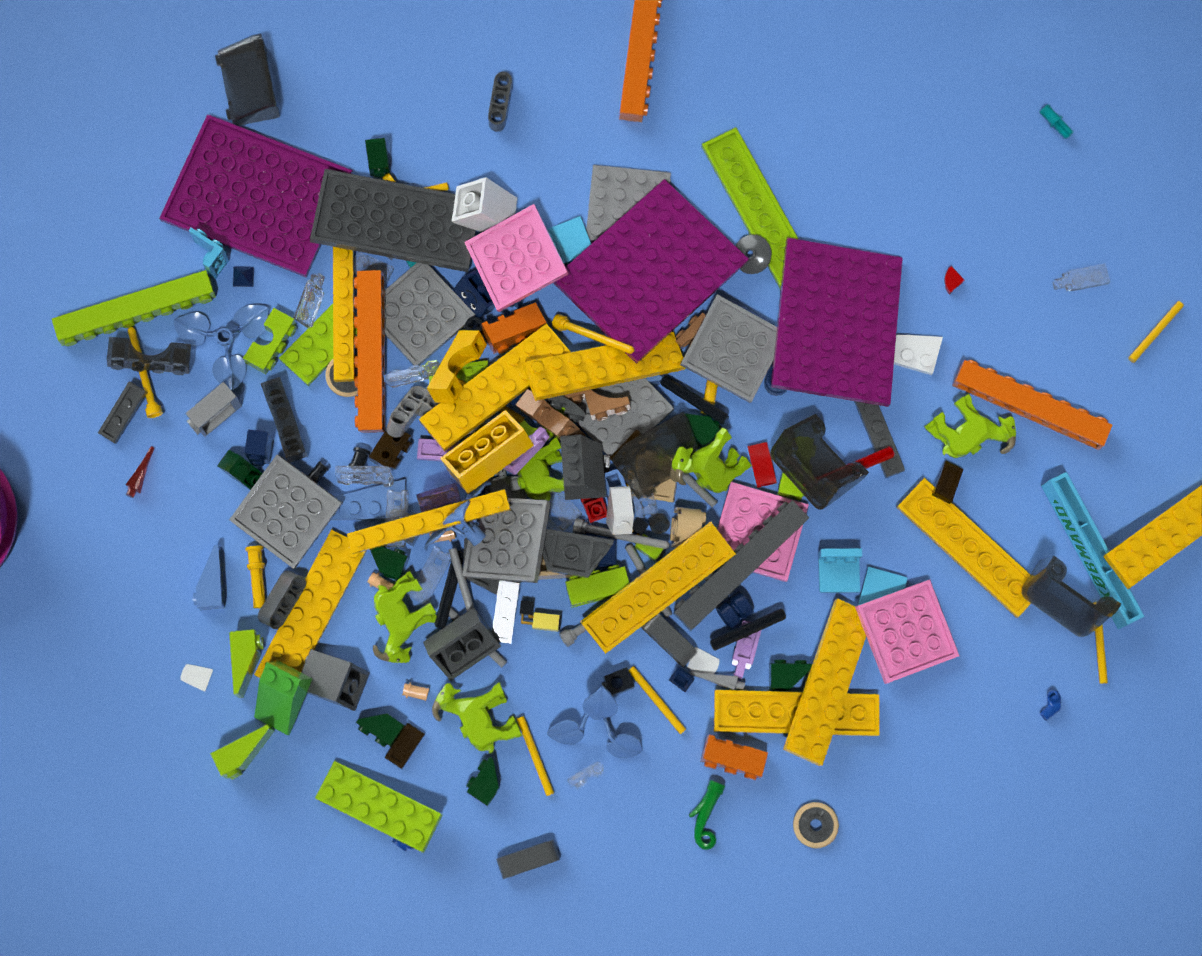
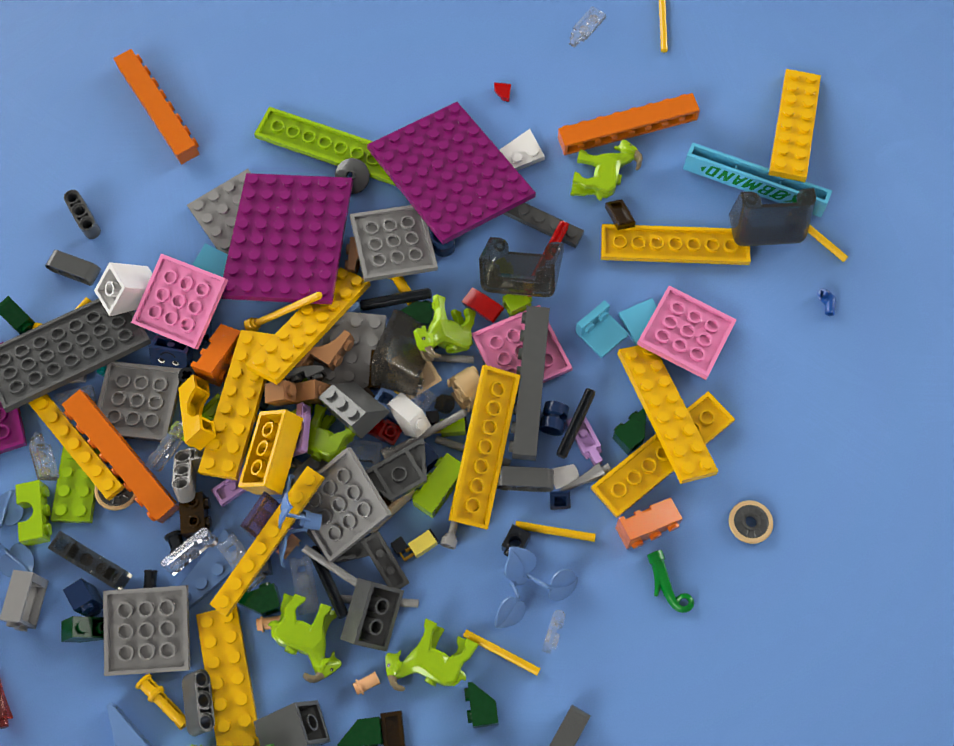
camera: 30 degrees left, 10 degrees down
(456, 146) = (73, 267): none -> dark grey beam

